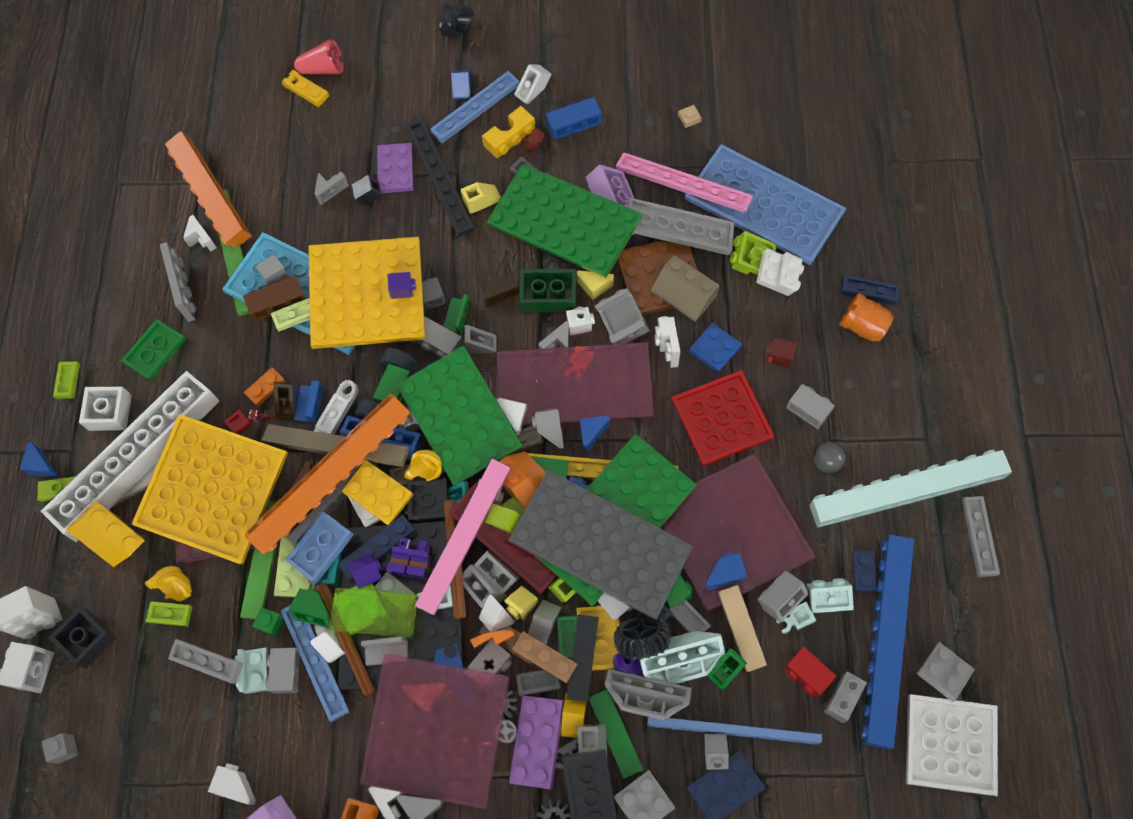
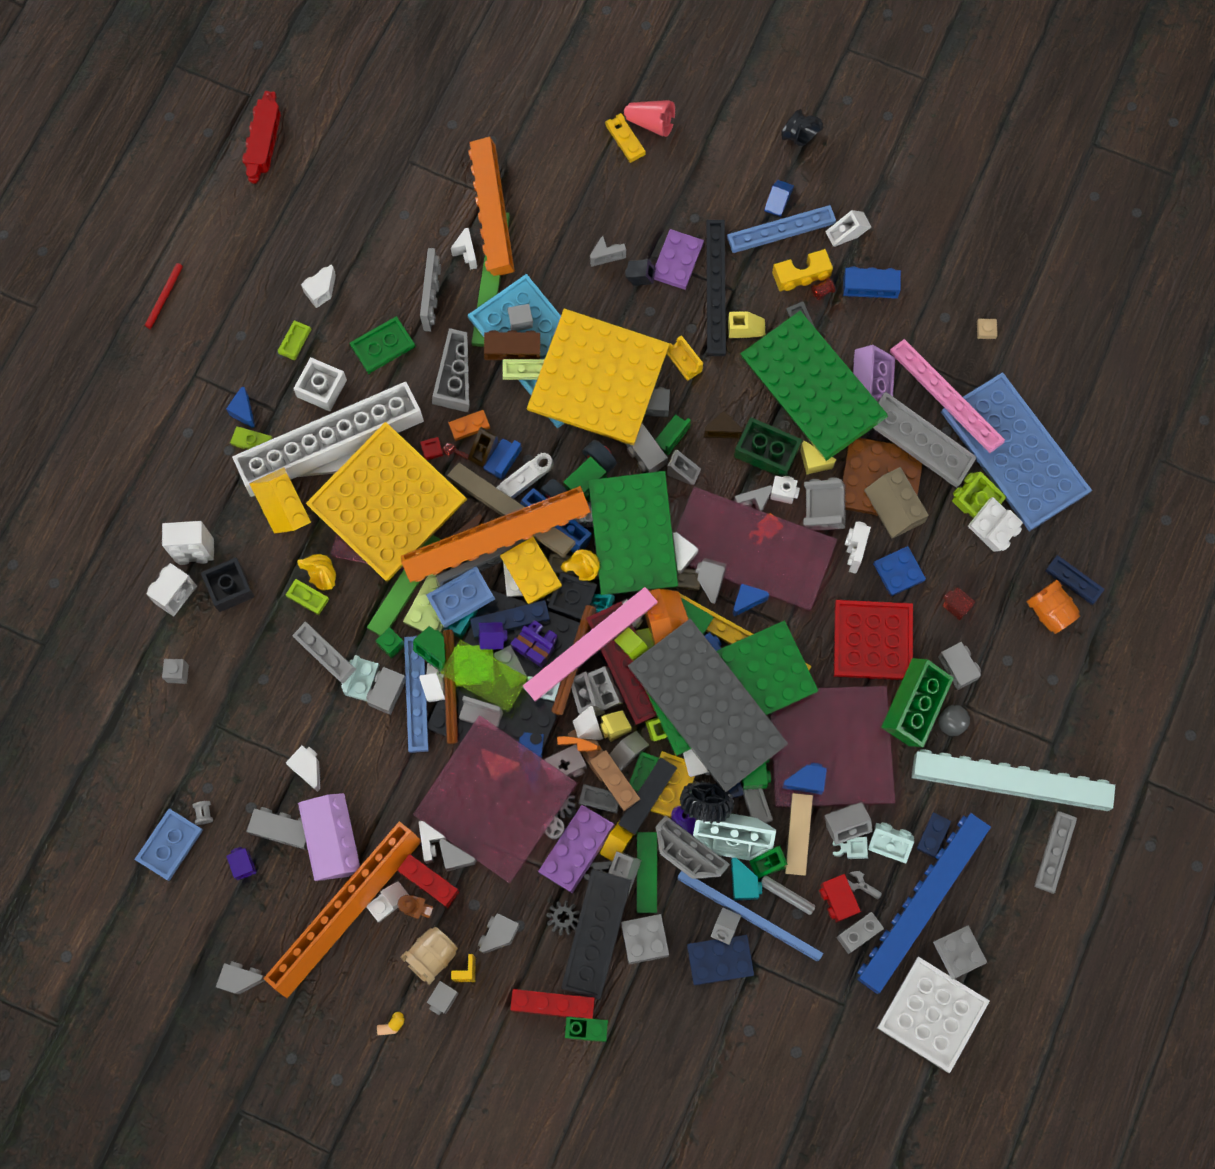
camera: 20 degrees right, 5 degrees up
(73, 321) = (320, 286): none -> white slope
(230, 350) = (452, 379): none -> light grey wedge
(401, 285) = (632, 386): dark purple brick -> none
(439, 246) = (685, 358): none -> yellow hinge
(712, 699) = (744, 882): none -> teal slope
(759, 692) = (788, 895): none -> light grey axle
(791, 455) = (917, 702): none -> green brick
(825, 649) = (862, 885): none -> light grey bar

